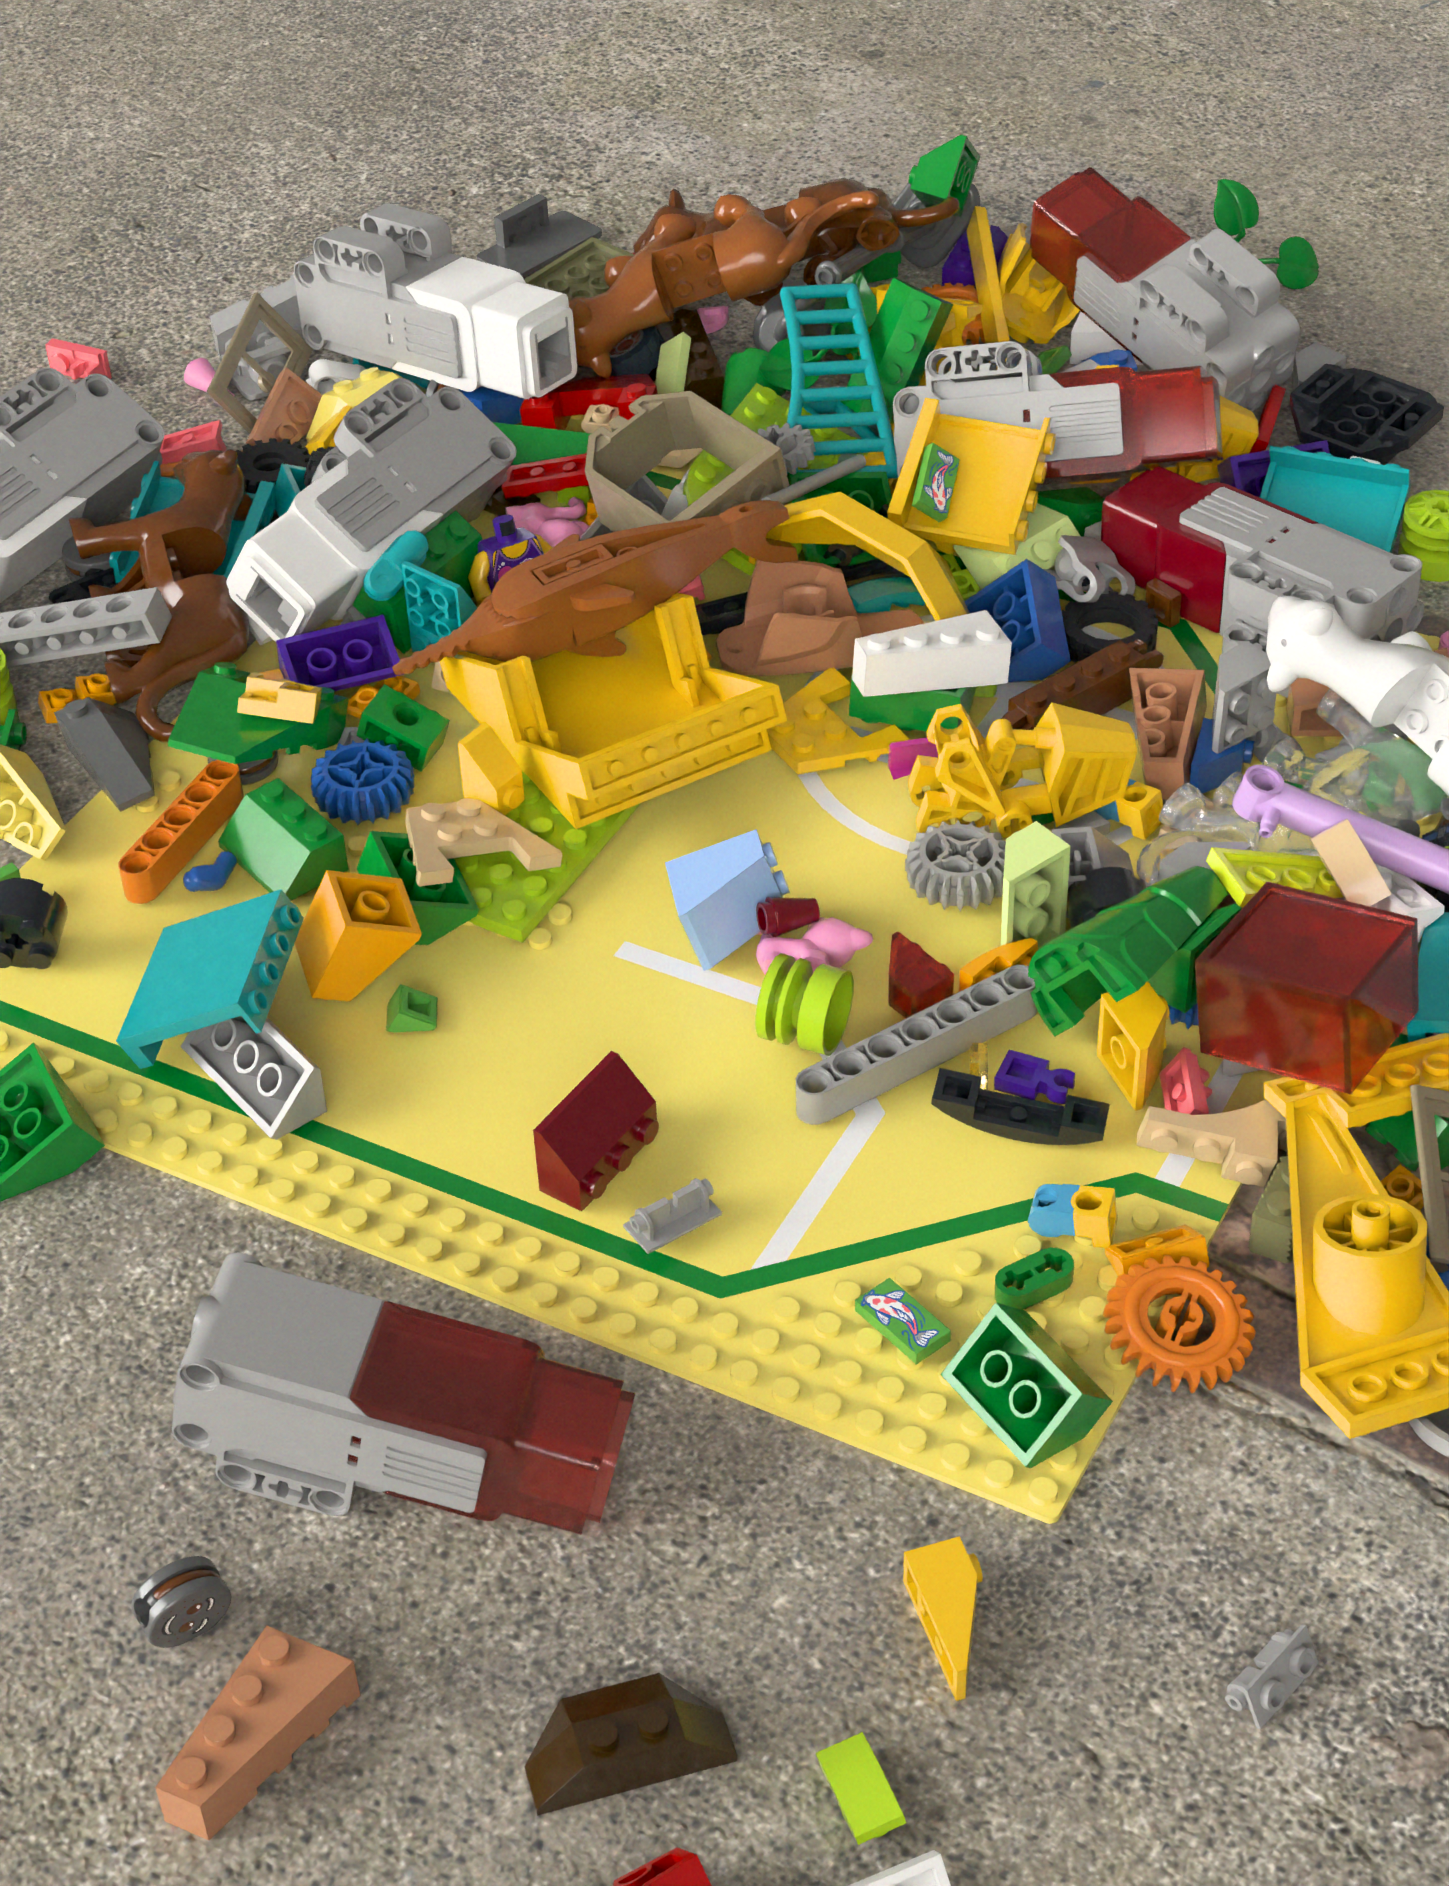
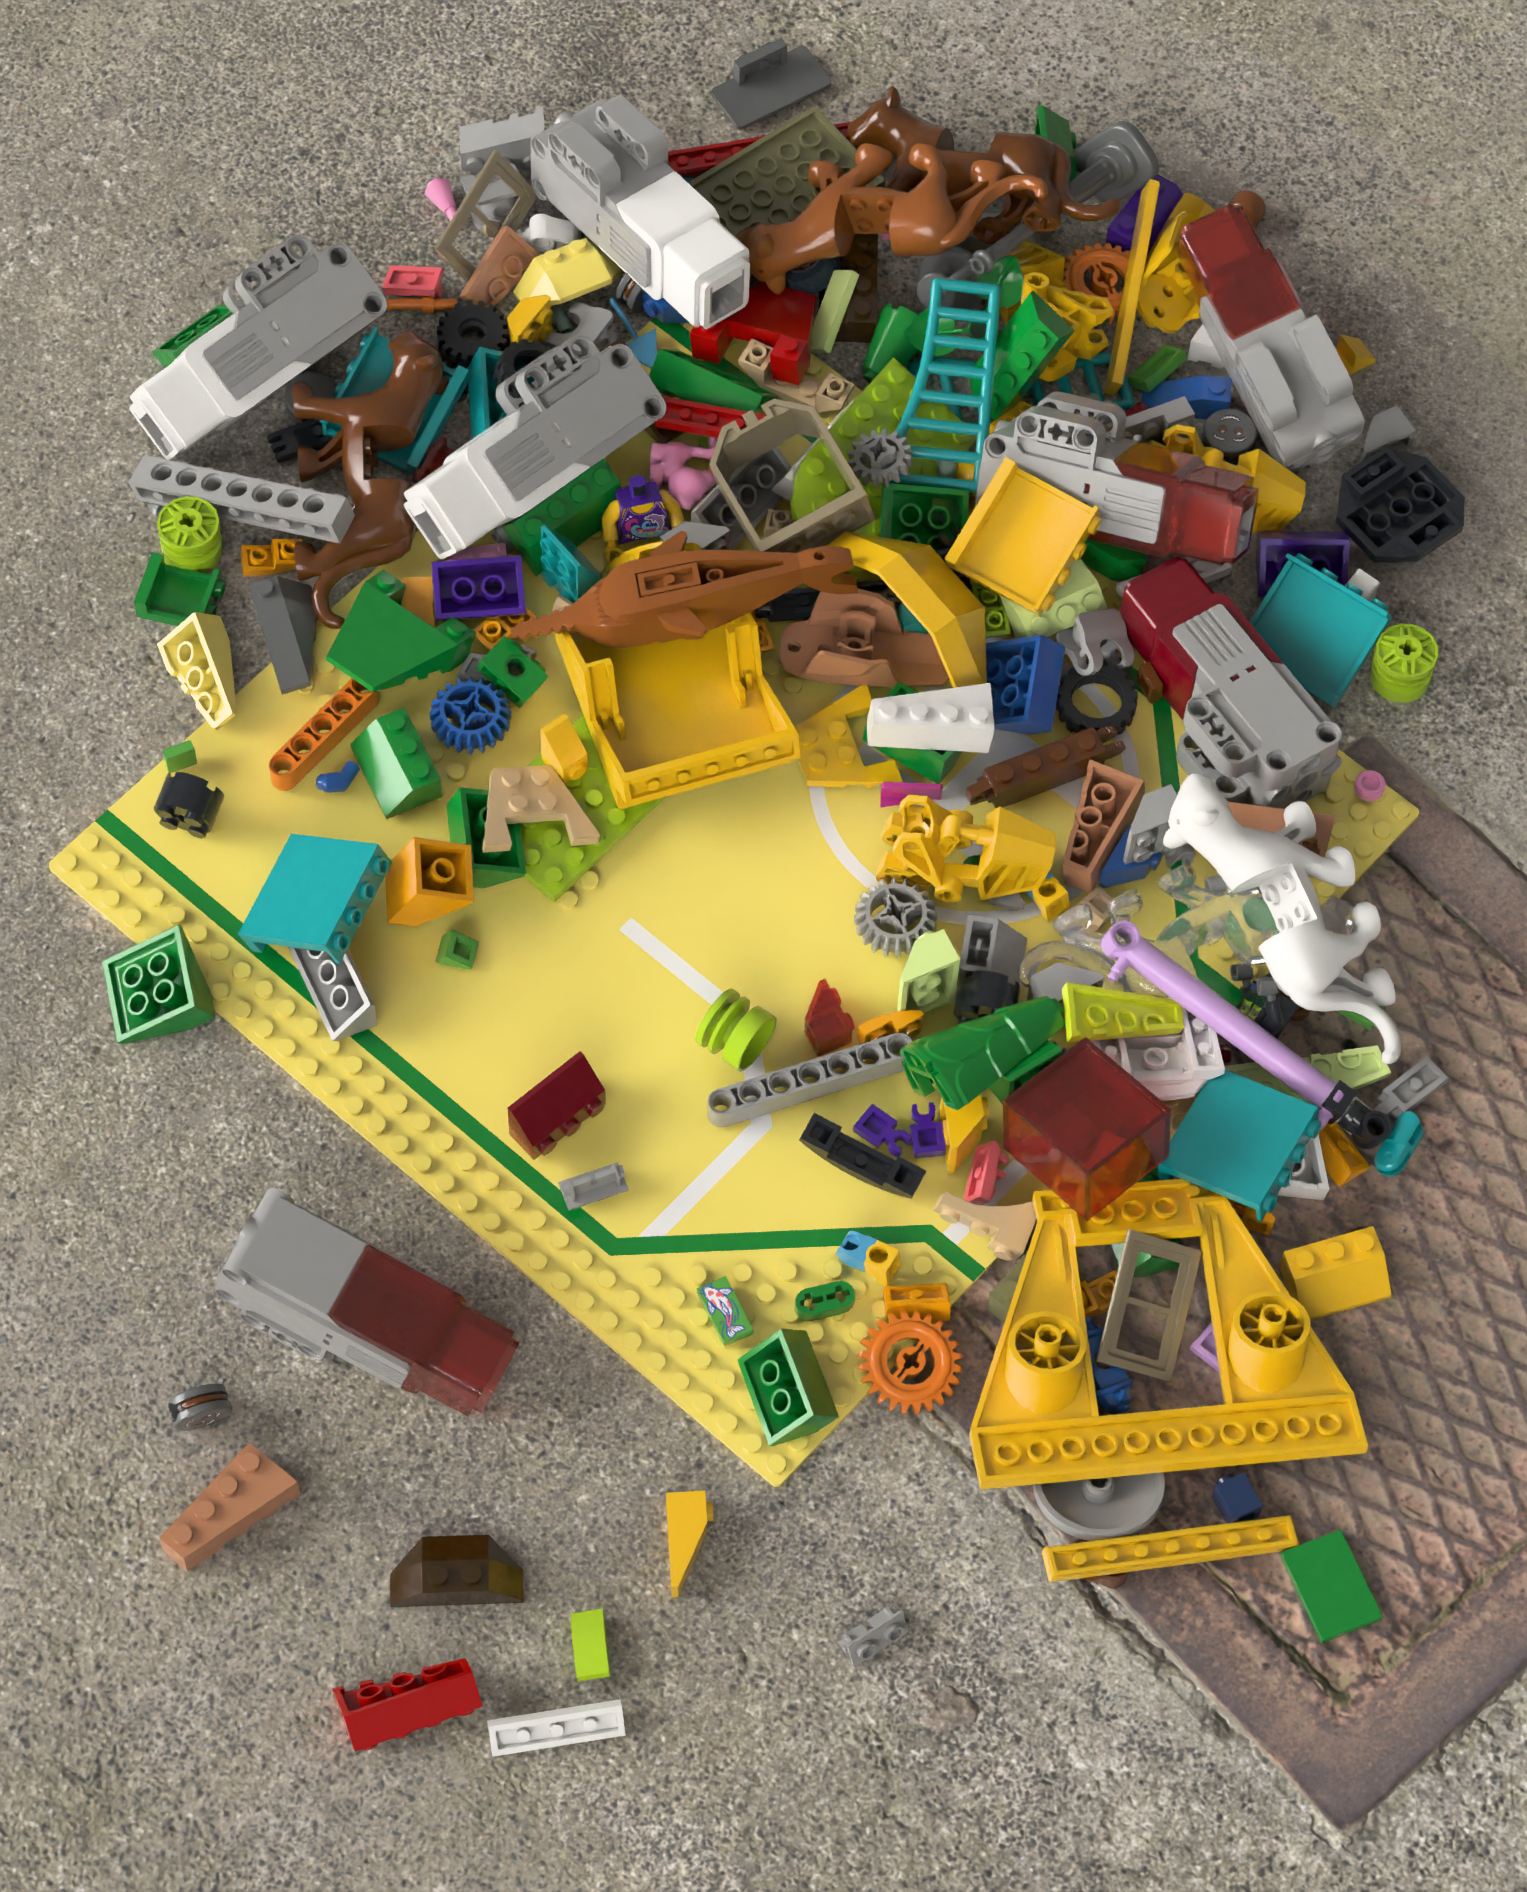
camera: 10 degrees right, 20 degrees up
(77, 359) = (339, 149): coral plate -> none
(280, 699) = (419, 633): yellow slope -> none
(386, 574) = (527, 528): teal arm -> none
(720, 891) = (706, 915): light blue slope -> none
(784, 915) = (746, 943): dark red cone -> none
(818, 480) = (897, 506): light grey piece -> none
(825, 942) = (770, 972): bright pink animal -> none
(935, 482) = (992, 537): bright green tile -> none
(945, 173) = (1121, 164): green slope -> none
(979, 1063) = (846, 1113): clear yellow tile -> none
(1094, 1071) = (925, 1134): none -> dark purple plate
(1238, 209) = (1374, 241): green plant -> none
(1268, 418) = (1319, 490): red tile -> none
(1350, 864) = (1166, 1019): tan slope -> none

